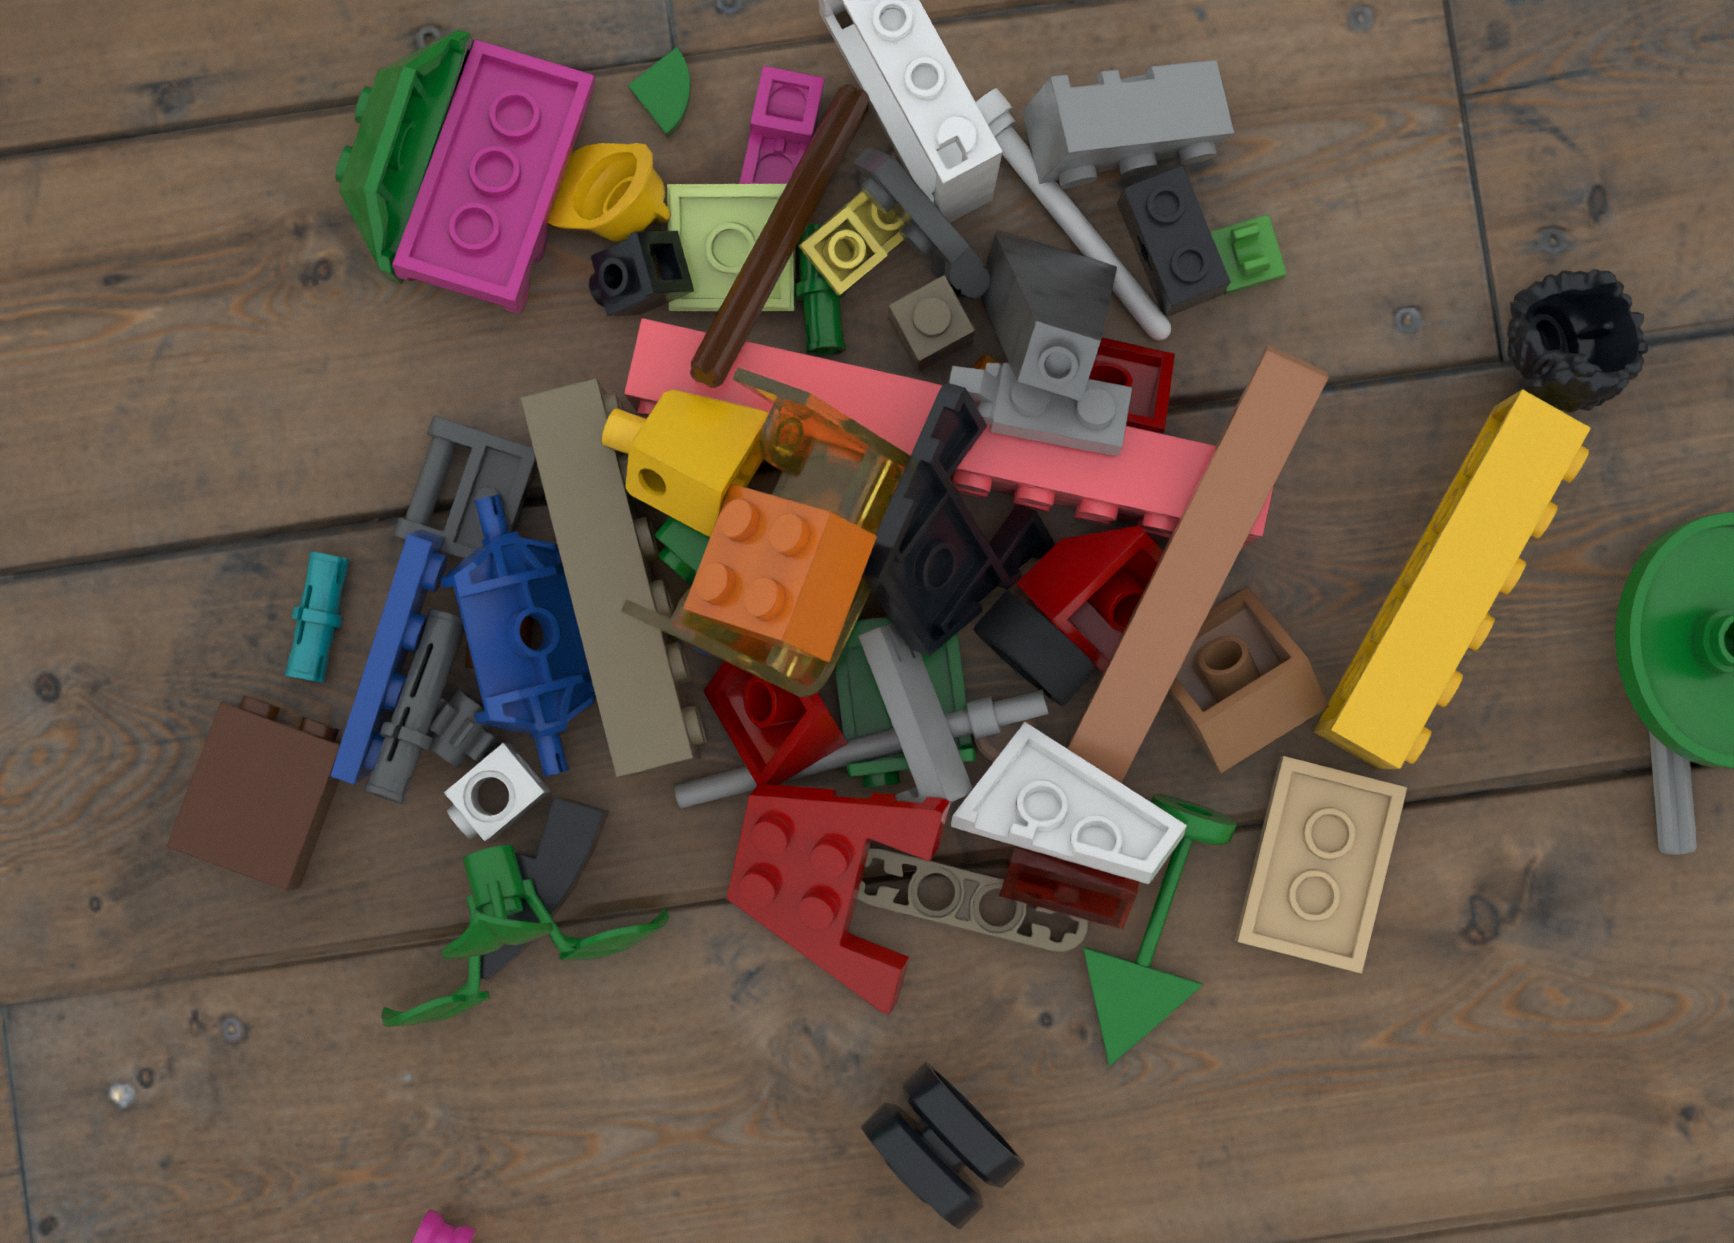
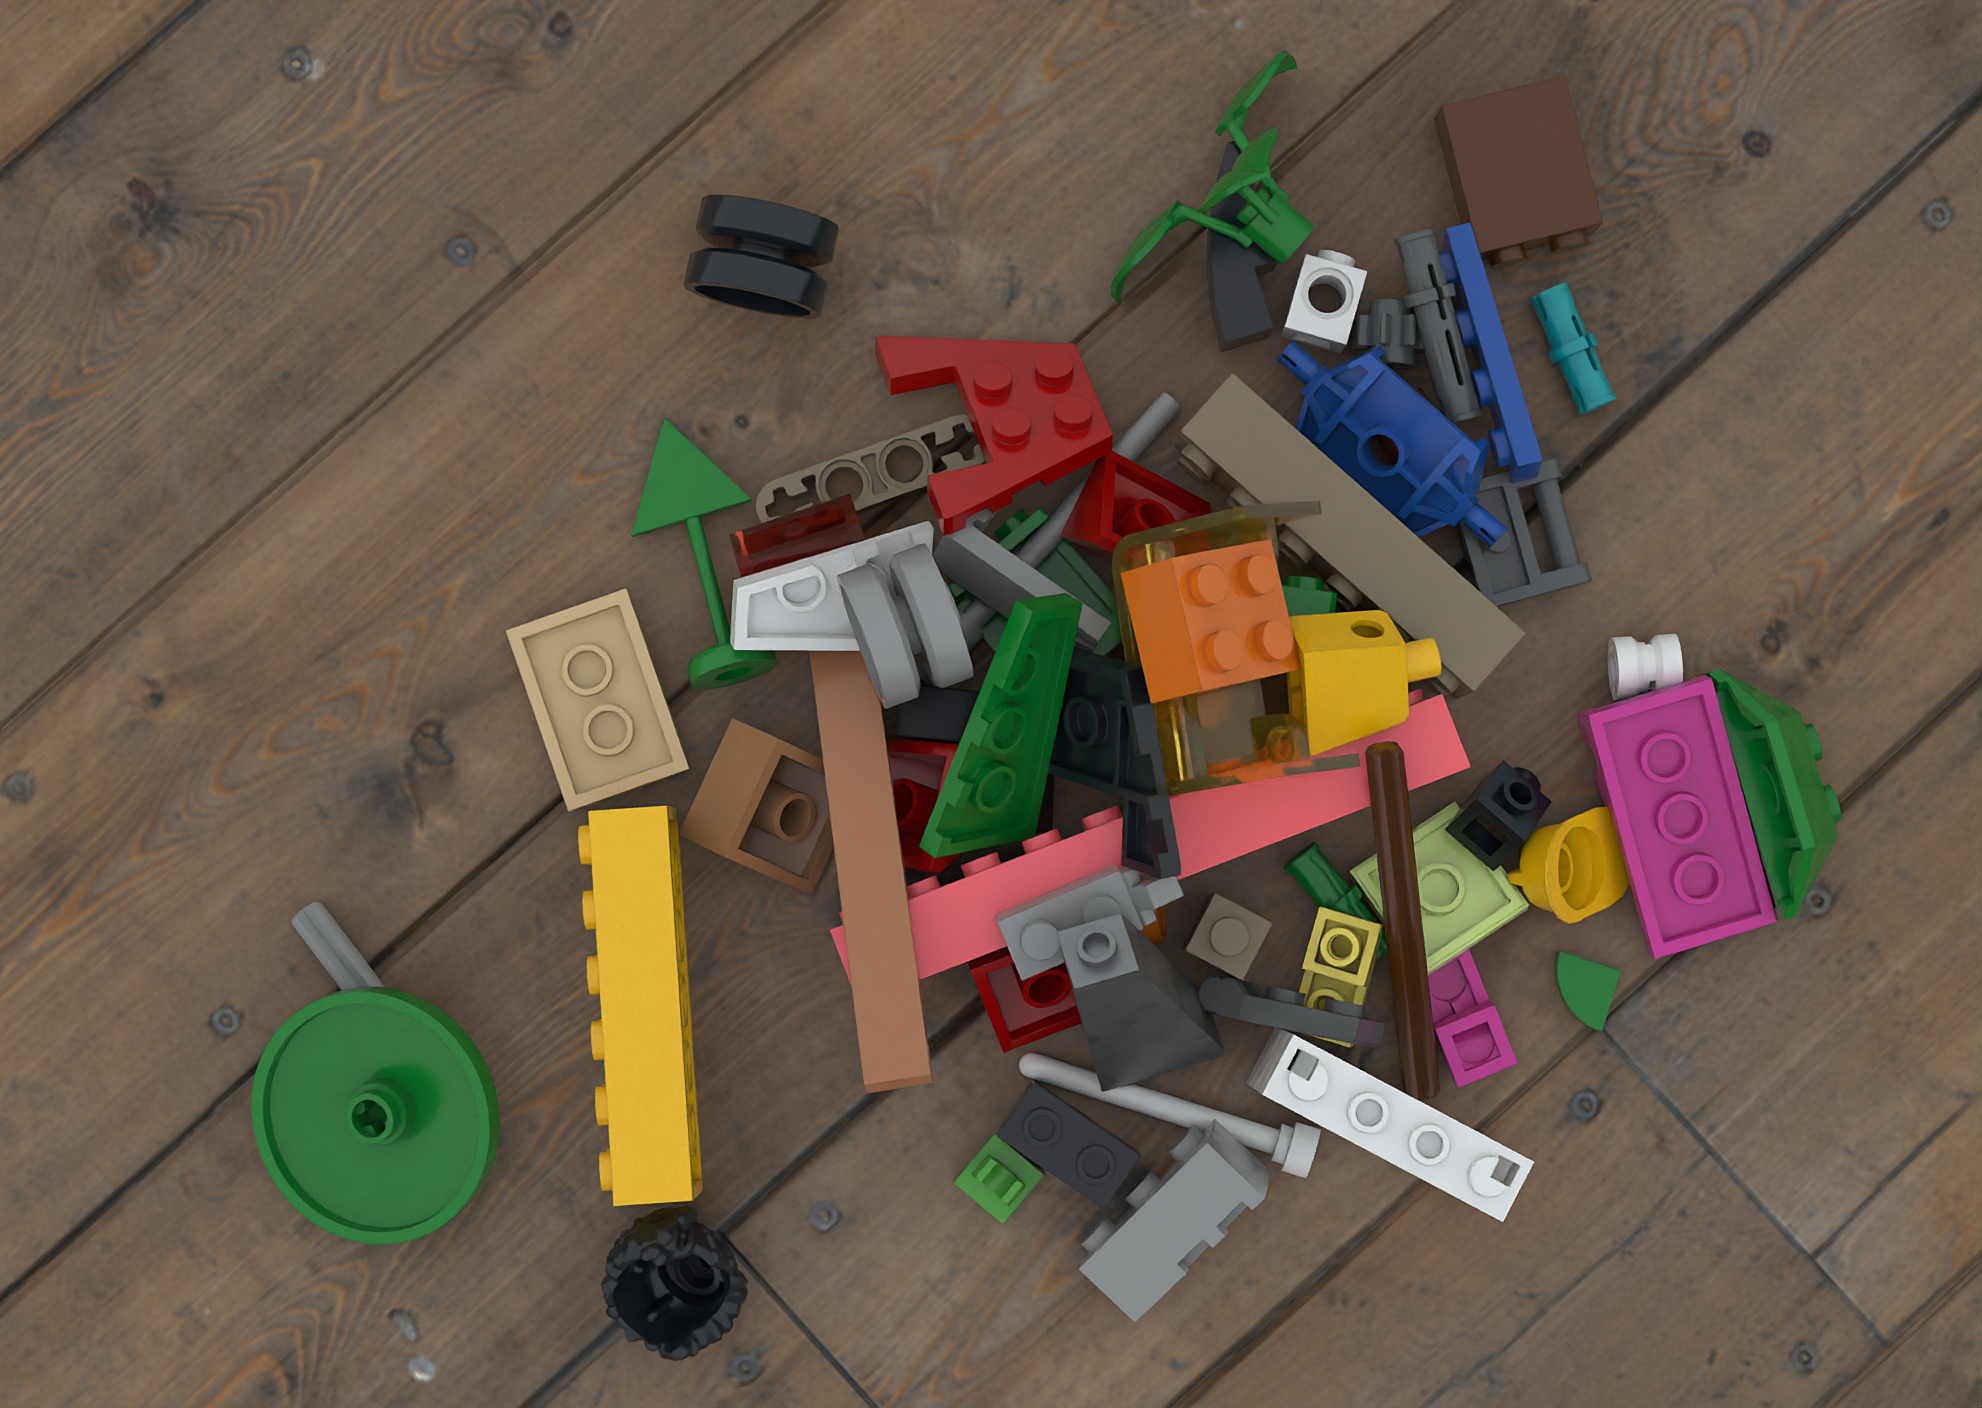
camera: 145 degrees right, 0 degrees up
(443, 318) = (1642, 666): none -> white wheel
(1006, 596) = (1008, 743): none -> green wing
(1032, 745) = (913, 623): none -> light grey wheel

